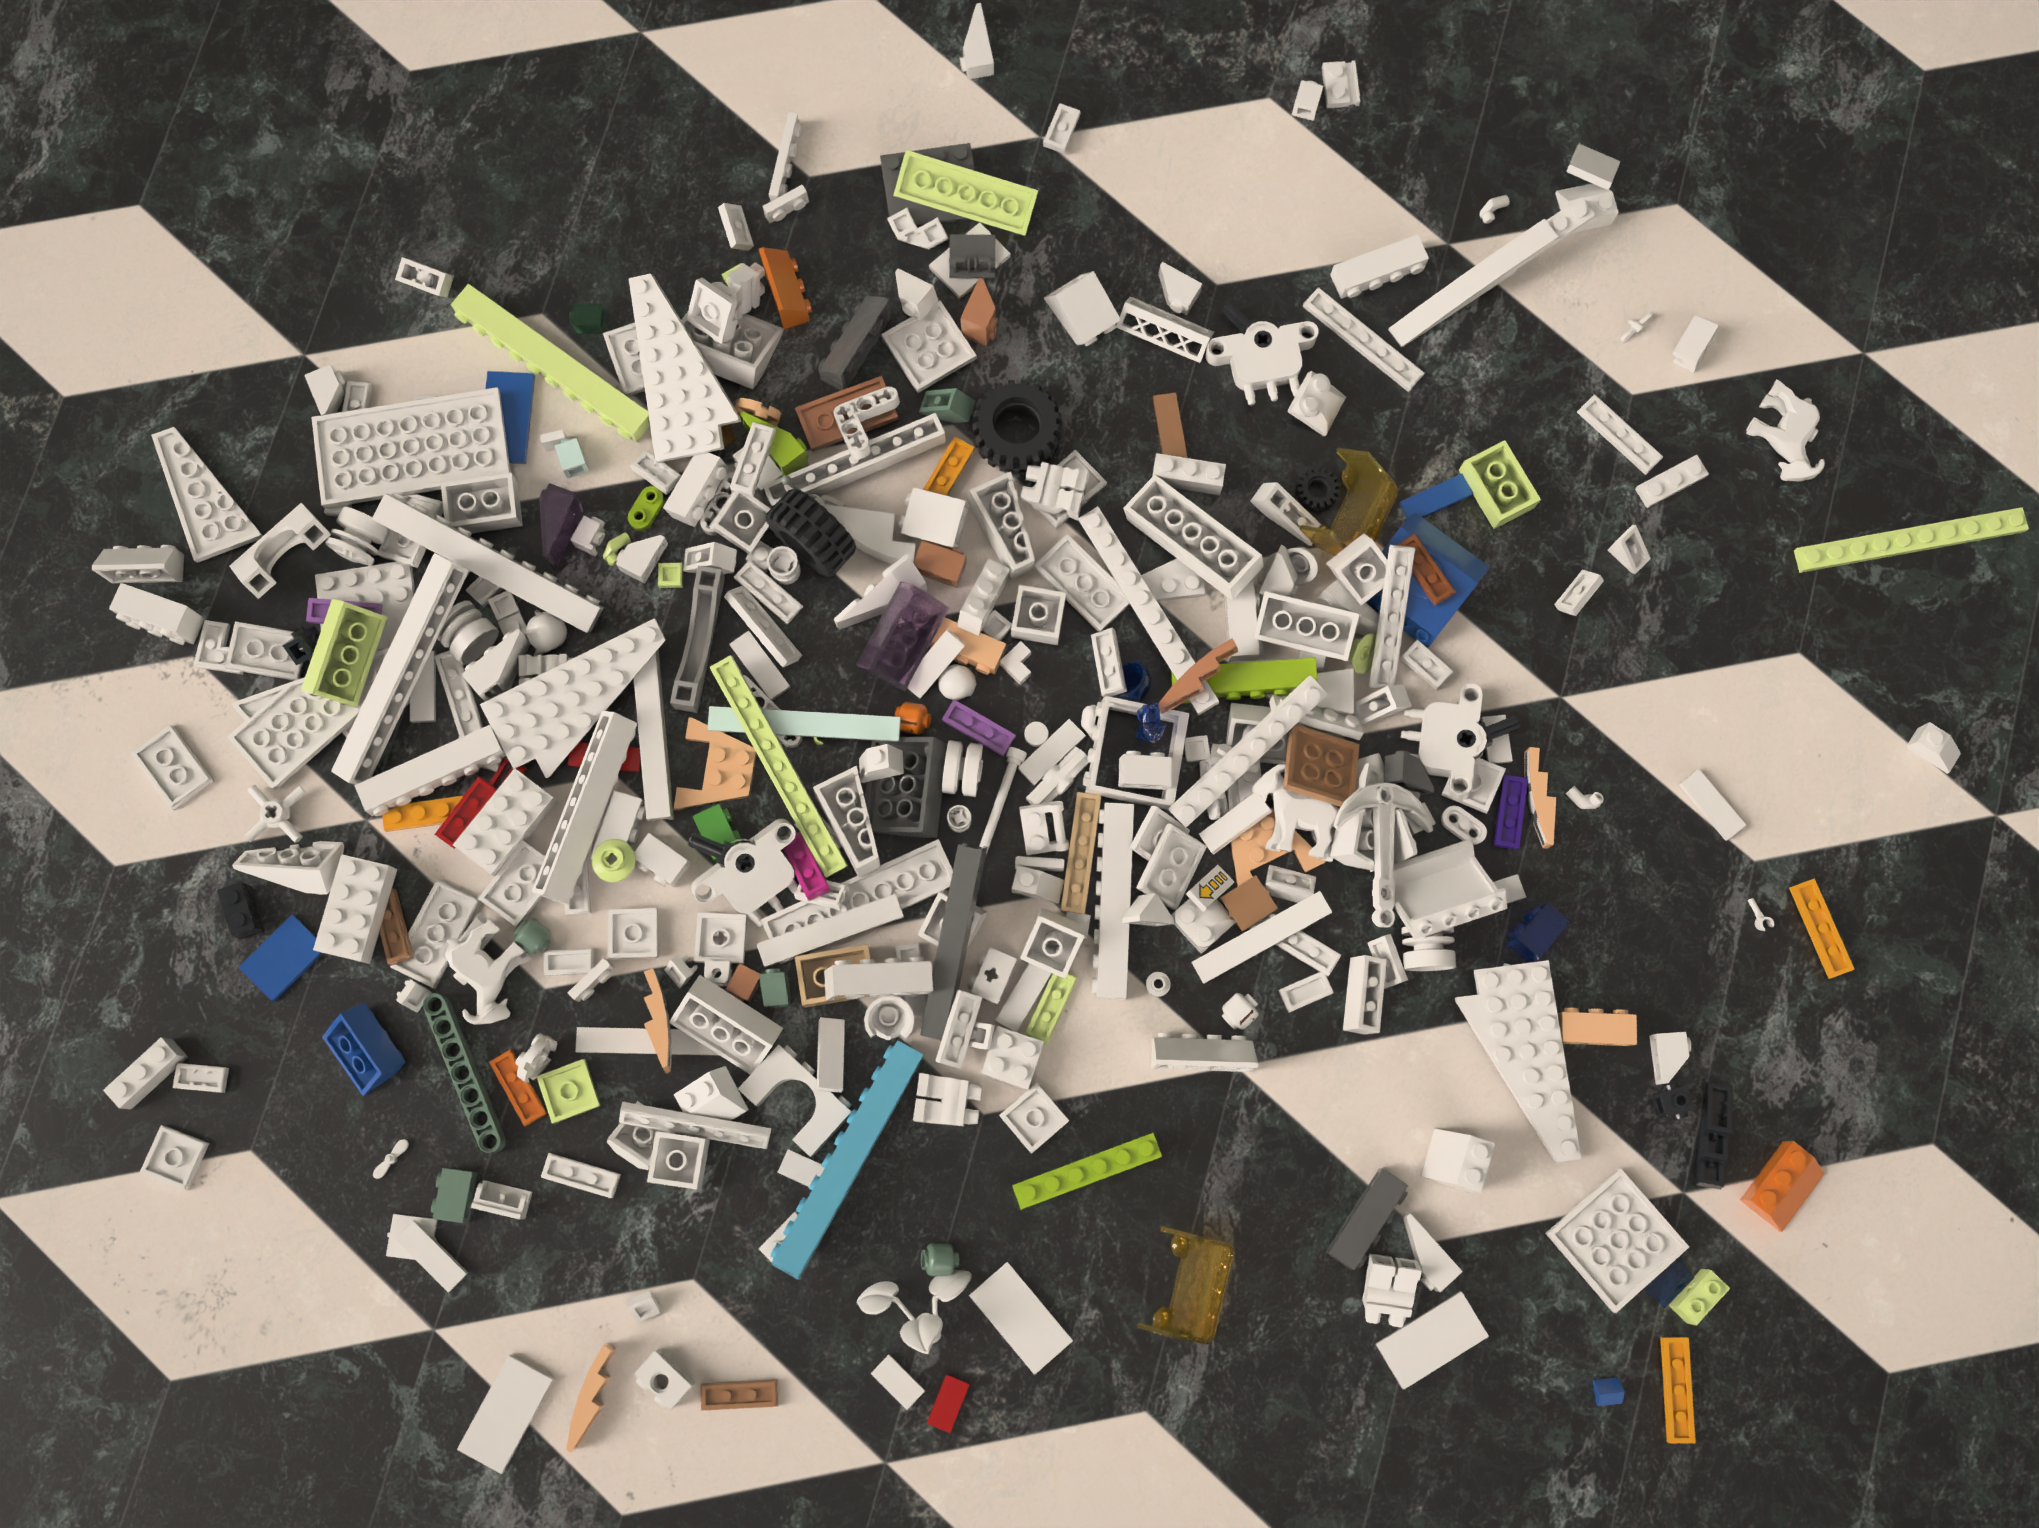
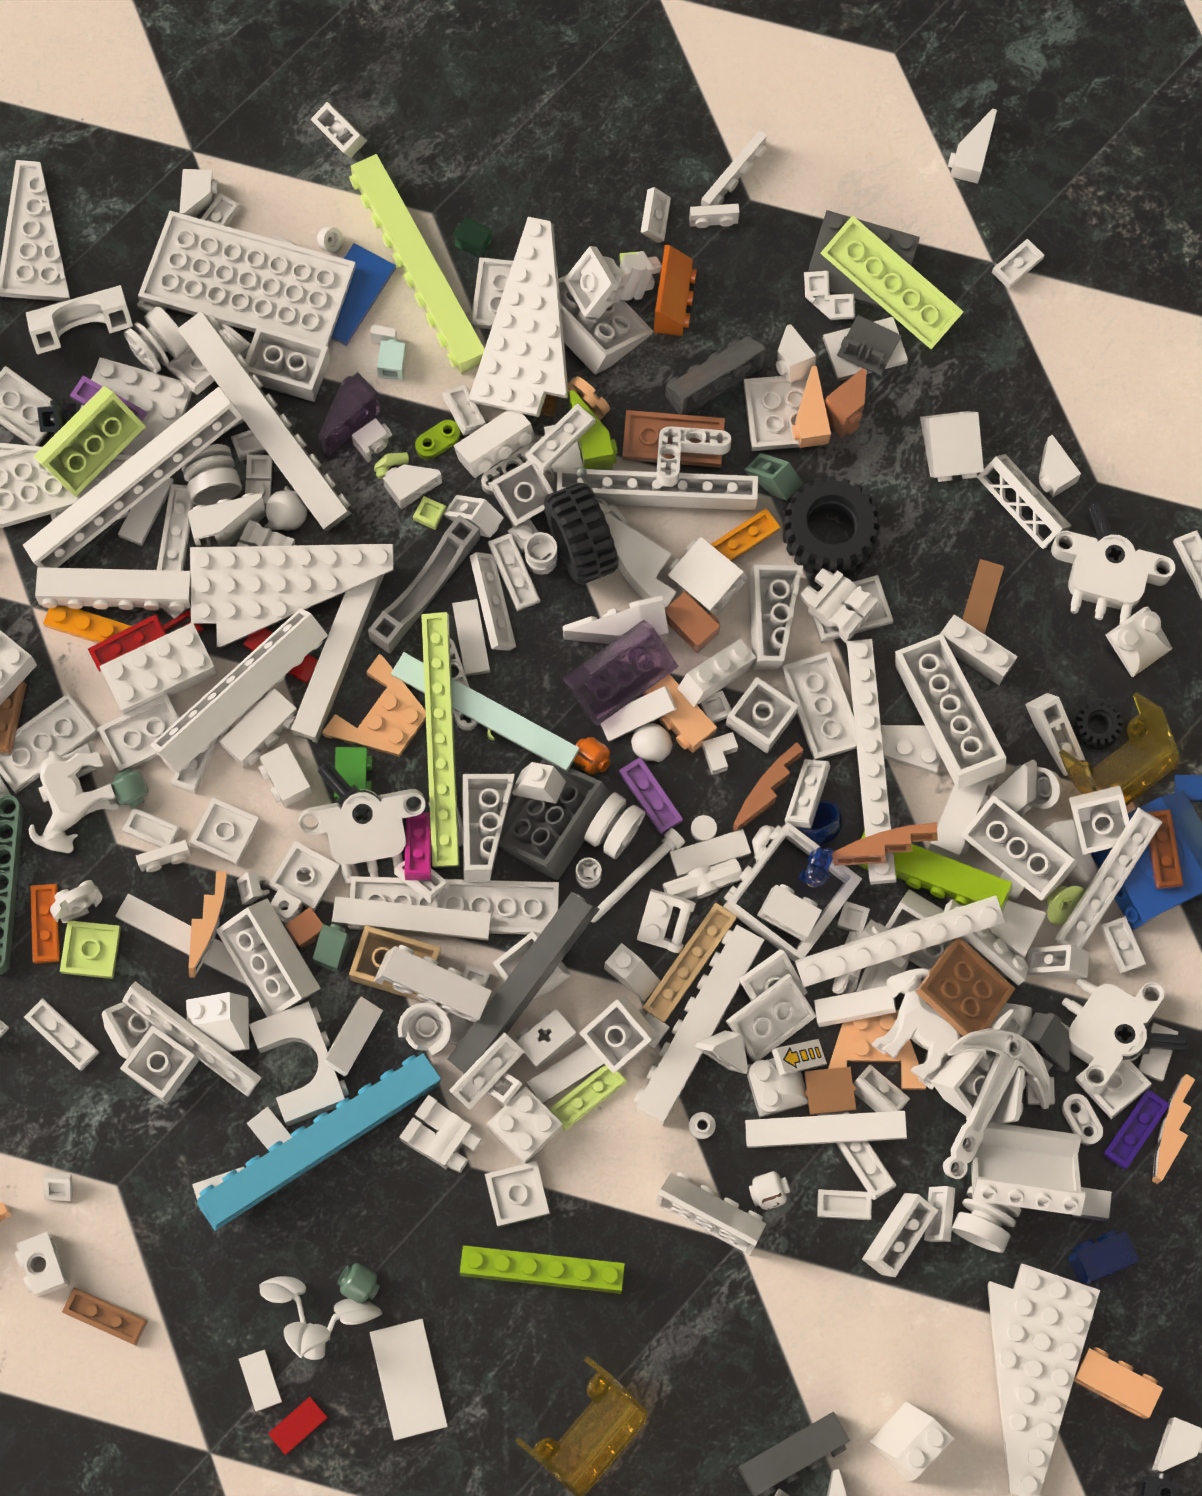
camera: 25 degrees right, 5 degrees down
(464, 377) = (329, 239): none -> white tile
(621, 868) = (243, 763): yellowish green piece -> none
(957, 344) = (812, 420): none -> light nougat slope
(1040, 864) = (647, 954): white tile -> none
(1071, 681) = (762, 794): none -> nougat slope

